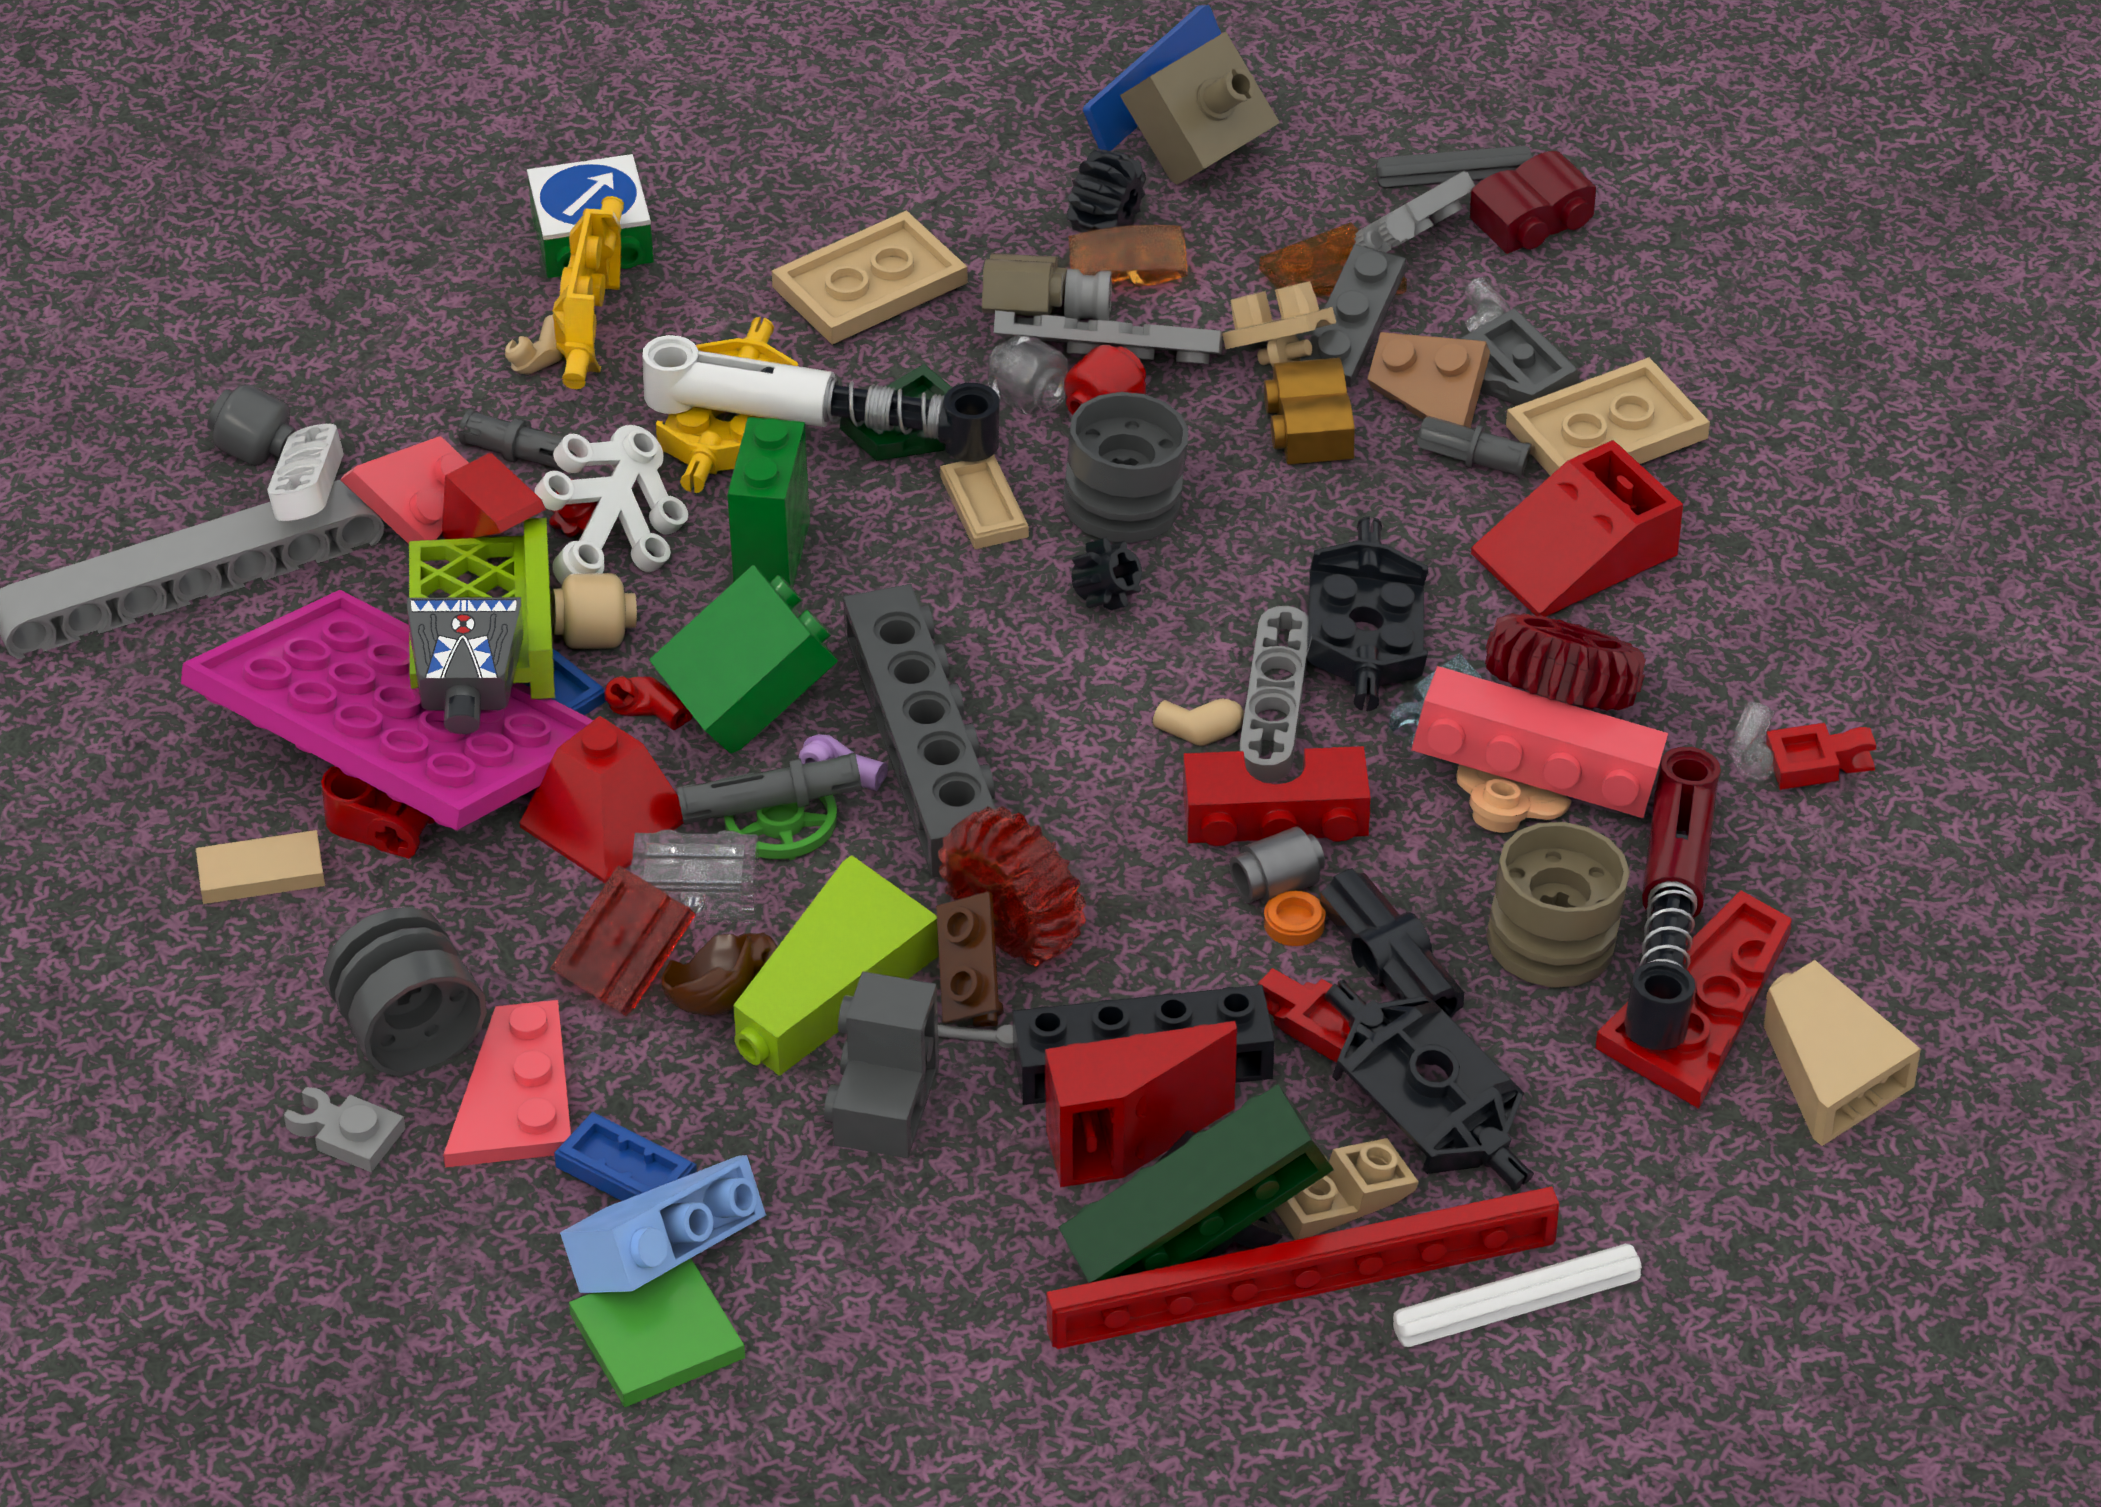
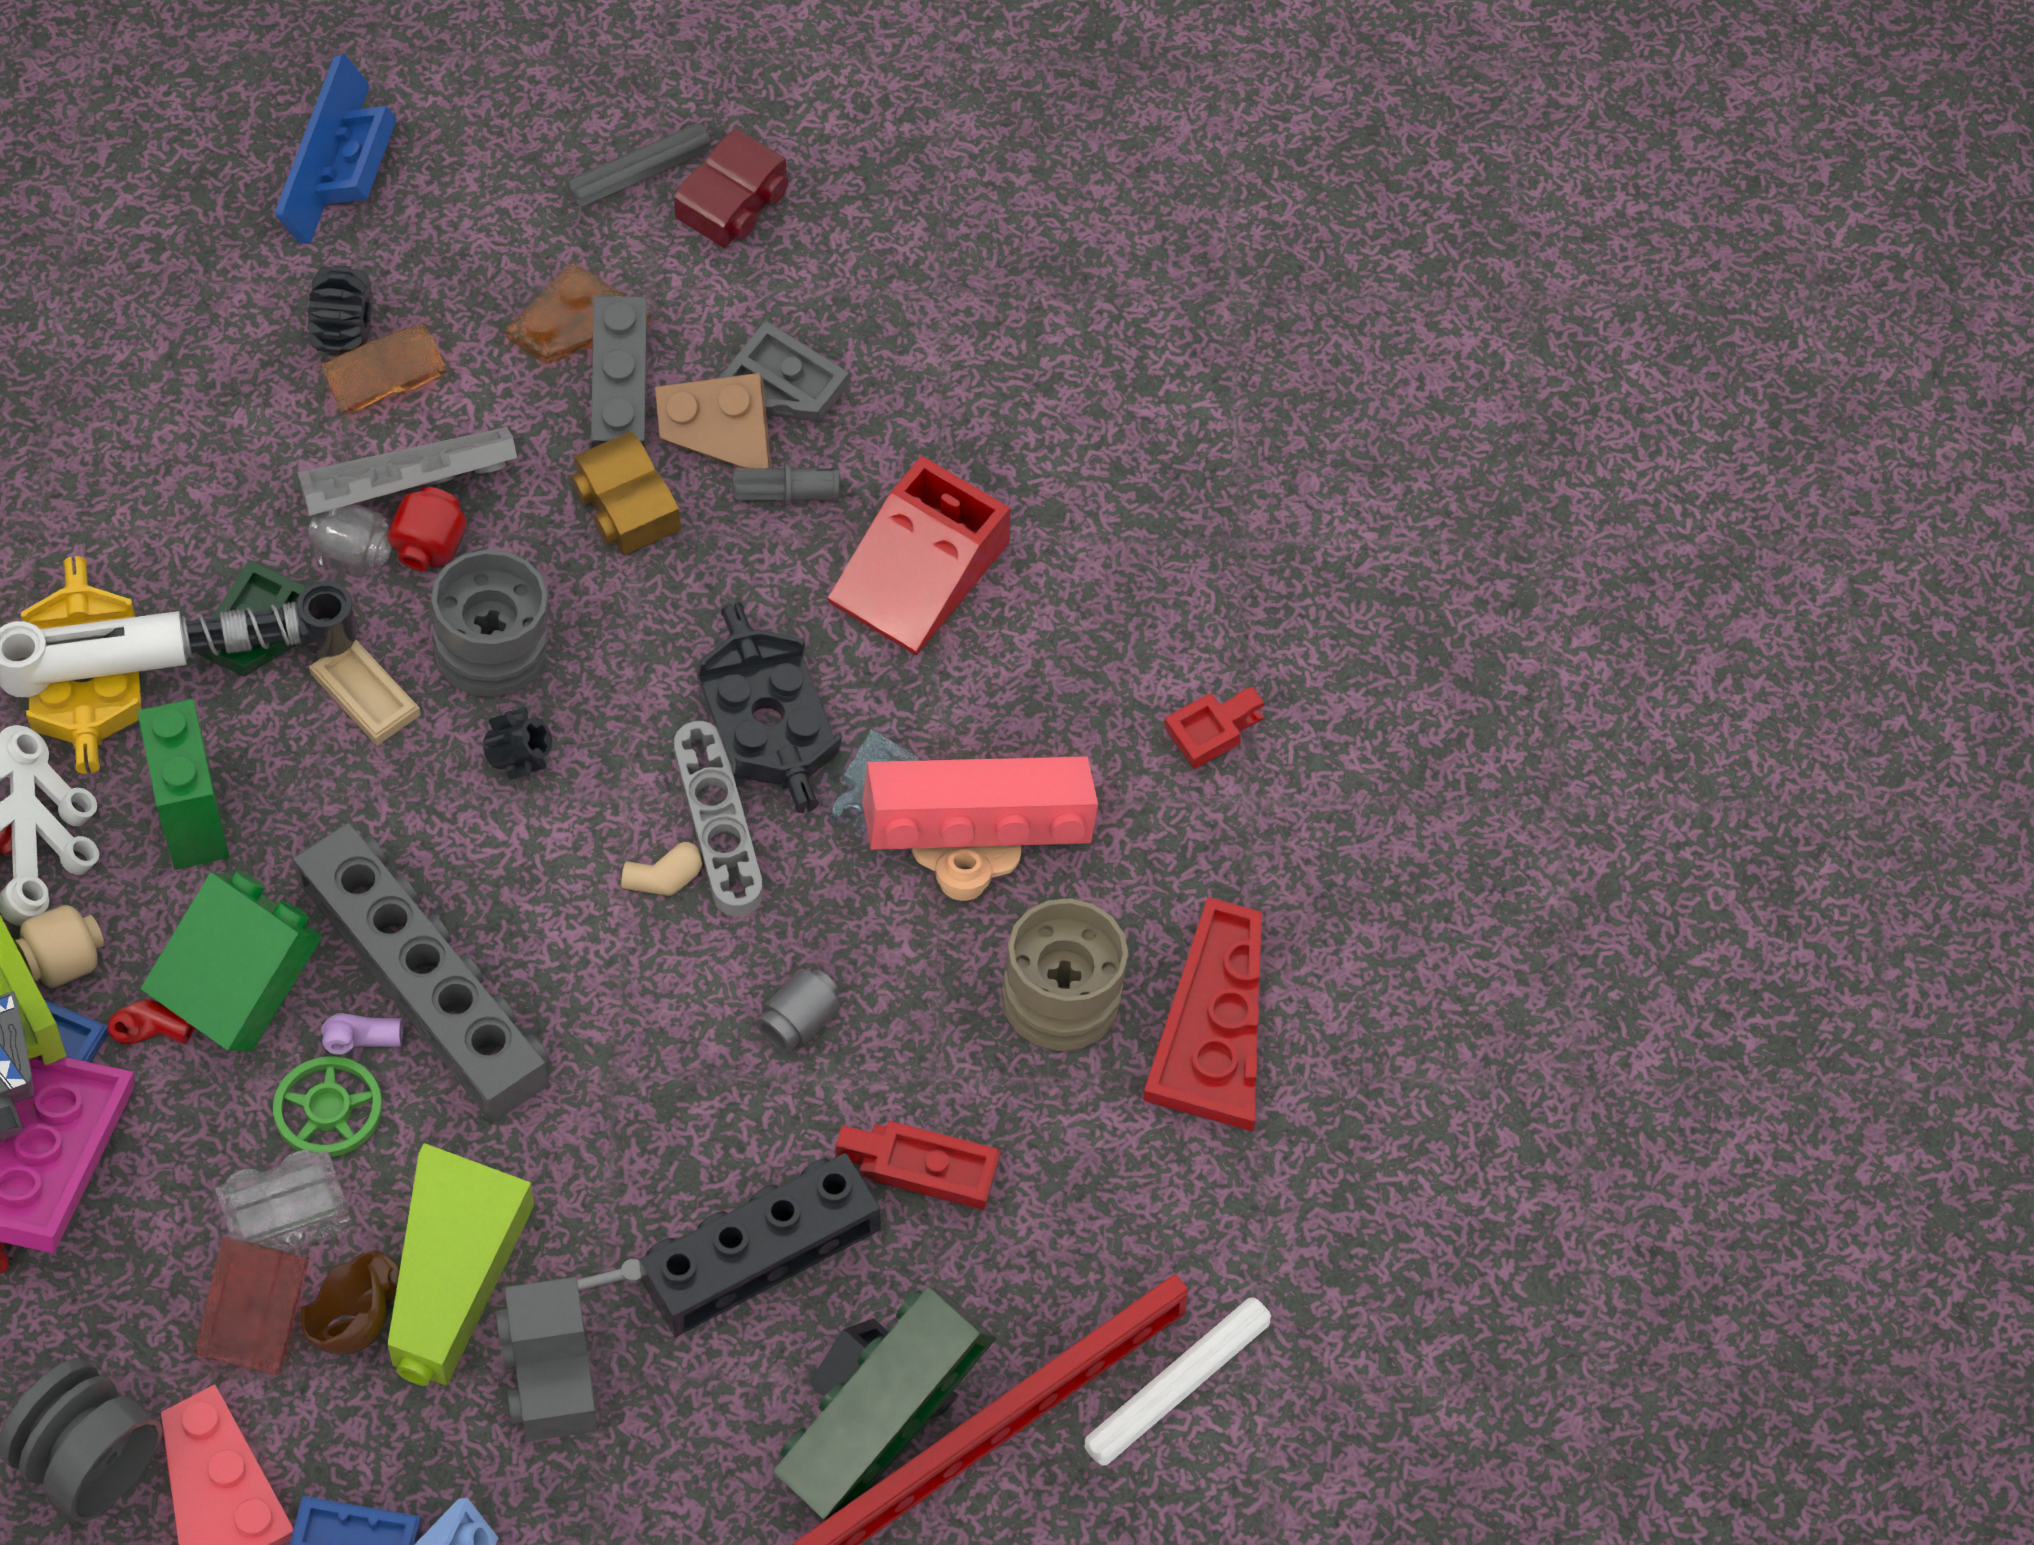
camera: 25 degrees left, 15 degrees up
(597, 798) = (162, 1156): red slope -> none
(770, 788) = (310, 1091): dark grey pin -> none
(869, 277) = (149, 469): tan plate -> none
(968, 960) = (574, 1215): reddish brown hinge -> none
(1022, 284) = (306, 440): dark tan brick -> none
(1025, 874) = (582, 1125): clear red gear -> none
(1088, 295) = (367, 428): light grey wheel -> none
(1134, 1097) = (772, 1325): red slope -> none
(1199, 108) = (389, 185): dark tan brick -> none
(1231, 805) = (729, 960): red arch -> none
(1294, 918) = (832, 1055): orange tile -> none
(1298, 315) = (563, 419): tan hips -> none
(1362, 1182) = (1007, 1309): tan slope -> none
(1387, 943) = (933, 1062): black piece -> none
(1414, 216) = (630, 242): light grey hinge -> none
(1450, 1121) = (979, 1192): black plate -> none
(1486, 301) = (738, 317): clear arm -> none
(1565, 661) = (970, 711): dark red gear -> none
(1627, 405) = (892, 417): tan plate -> none
(1673, 896) = (1156, 926): piece -> none
(1747, 745) = (1151, 735): clear arm -> none
(1835, 1051) = (1345, 1036): tan slope -> none

